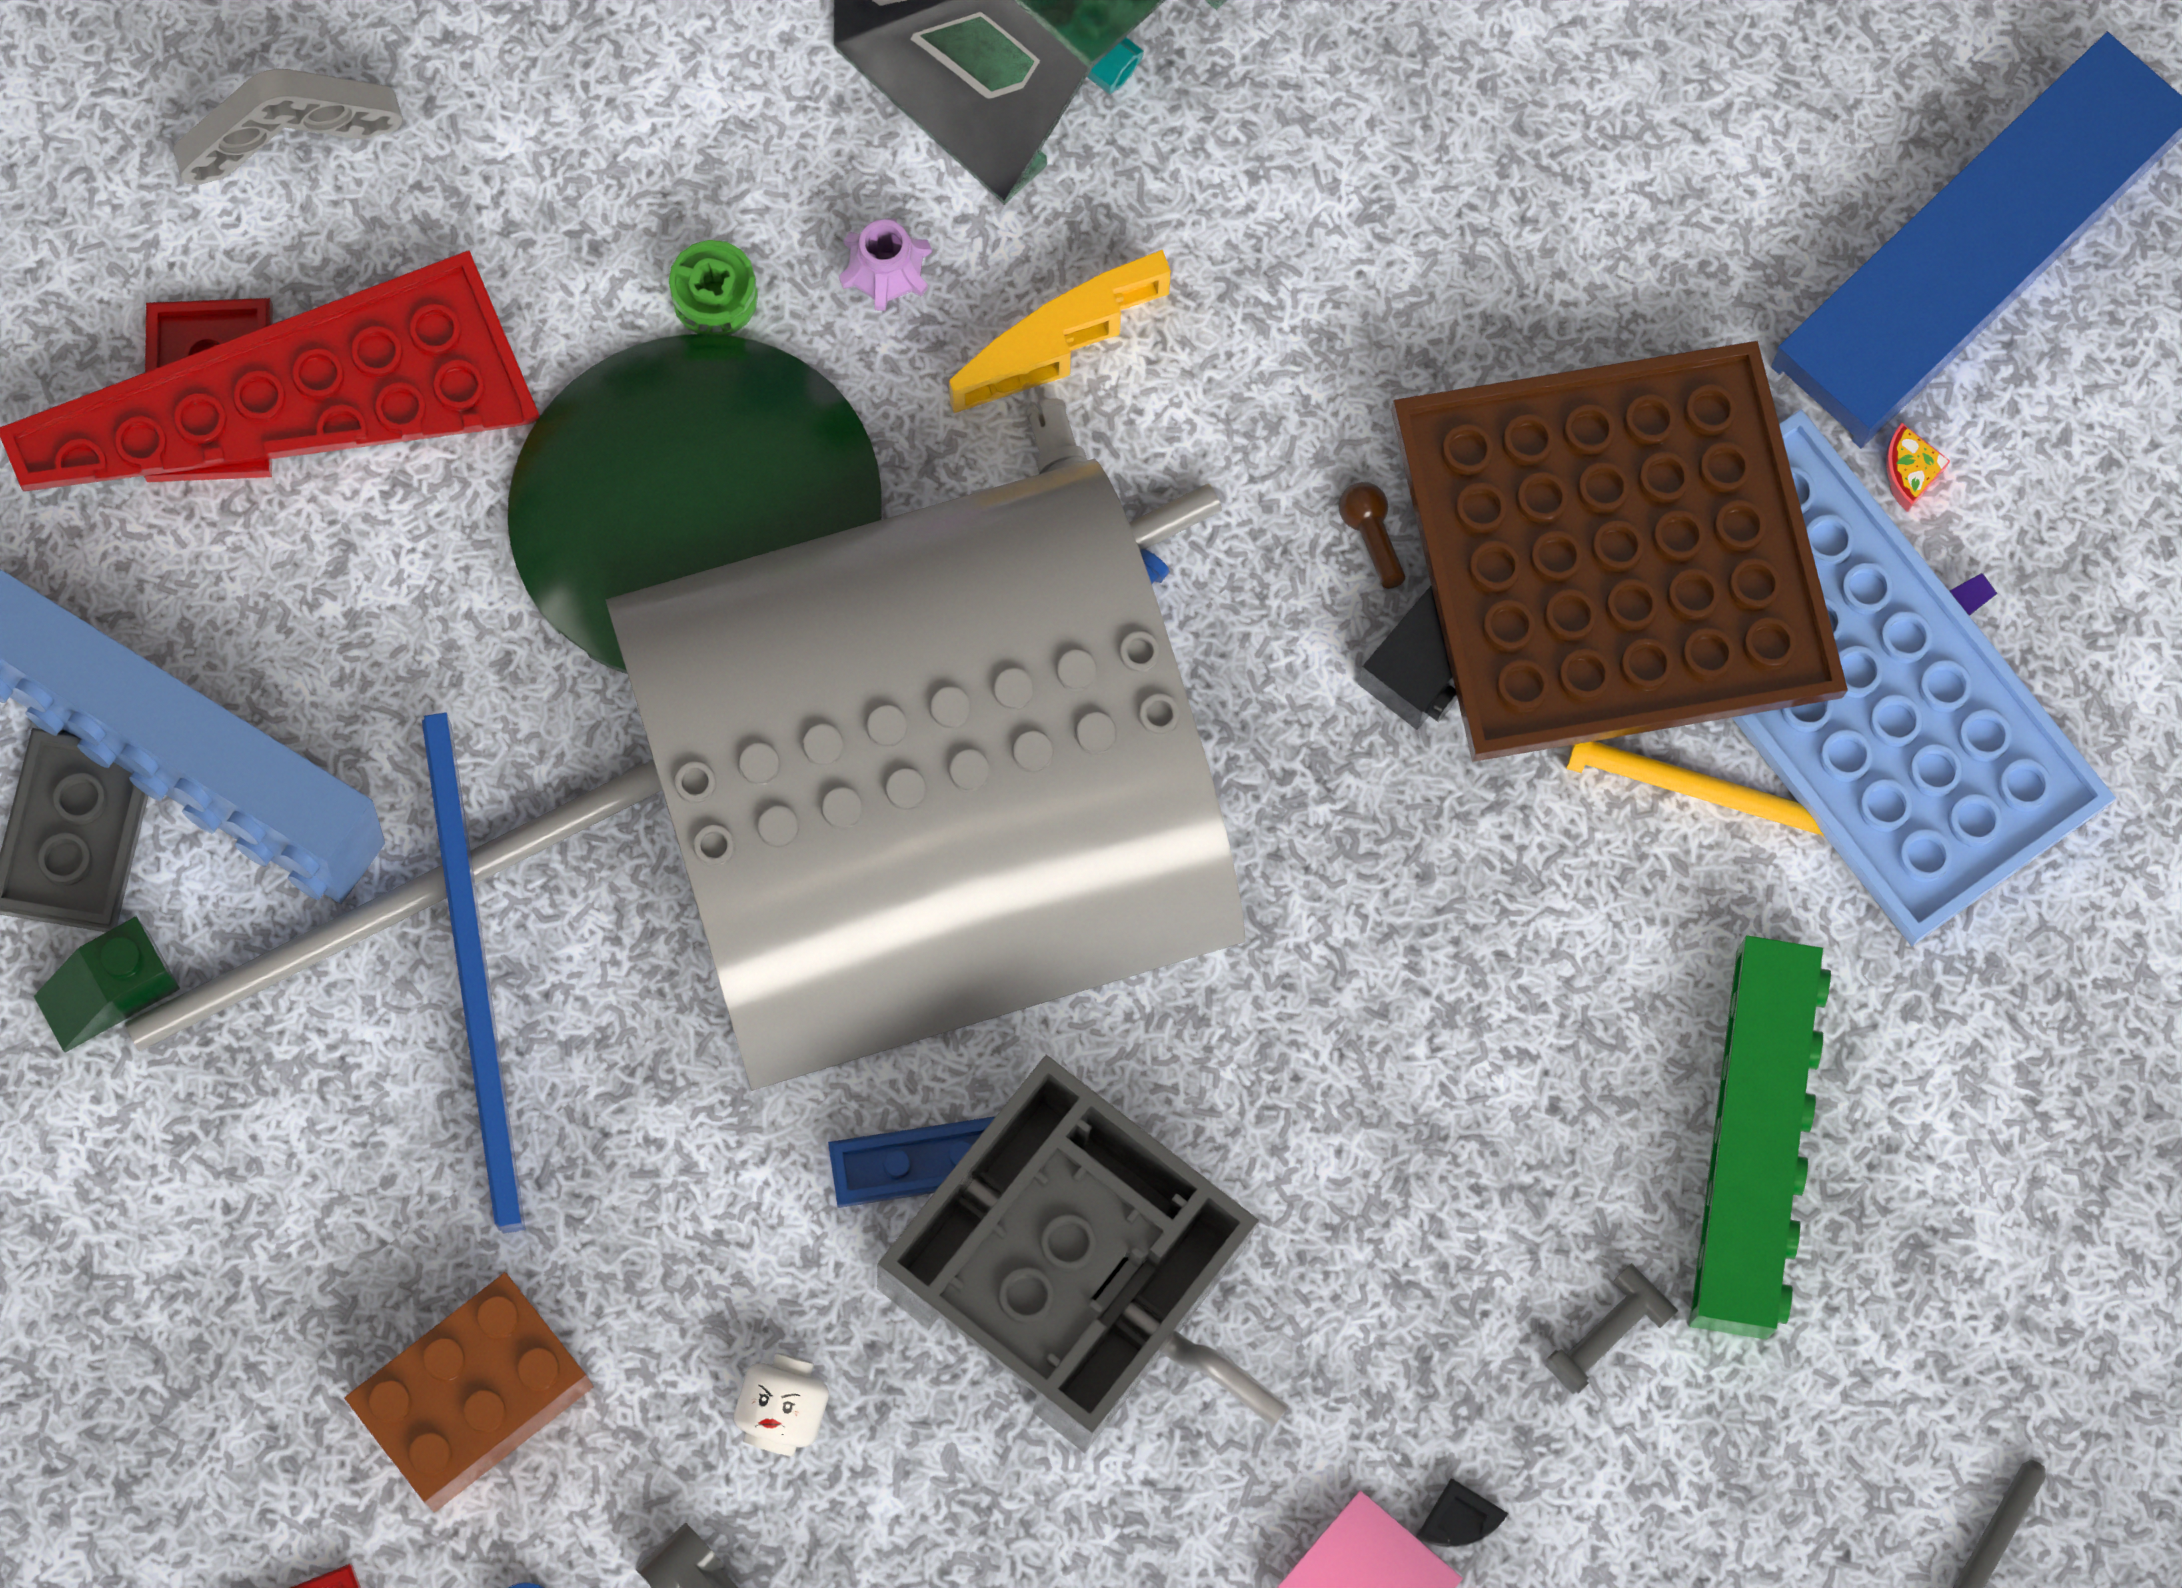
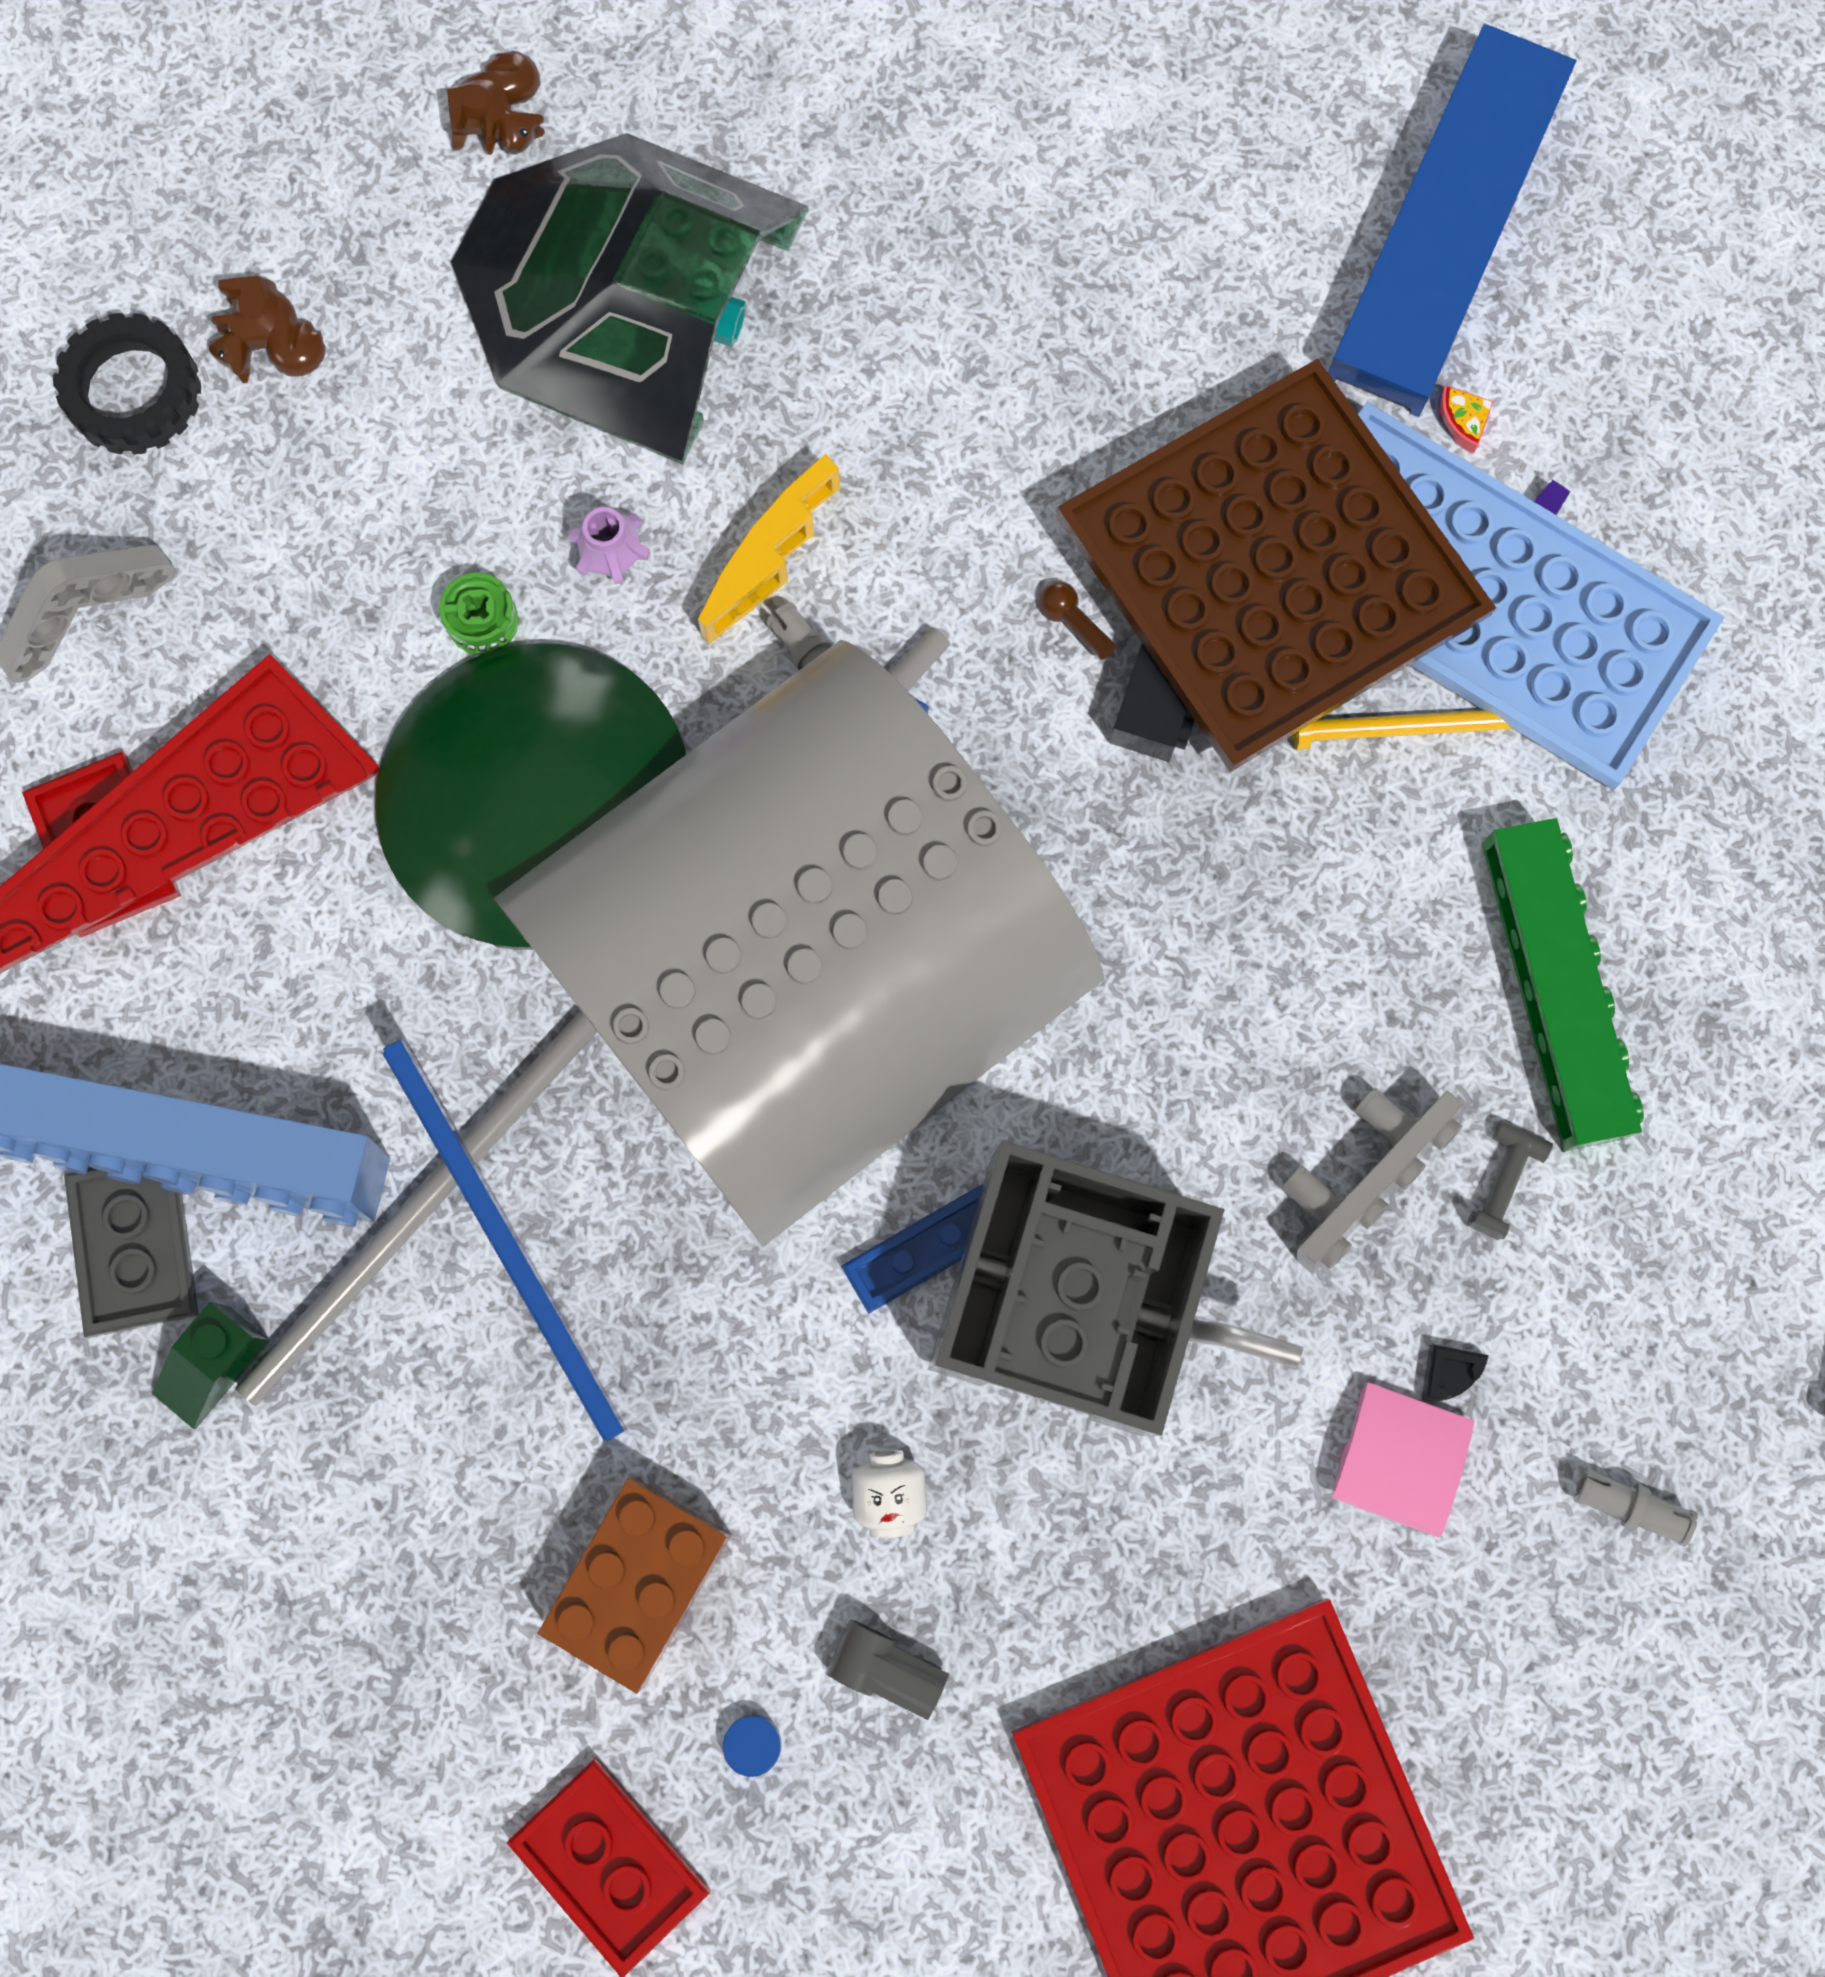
camera: 20 degrees left, 5 degrees up
(1438, 1290) = (1365, 1204): none -> light grey plate

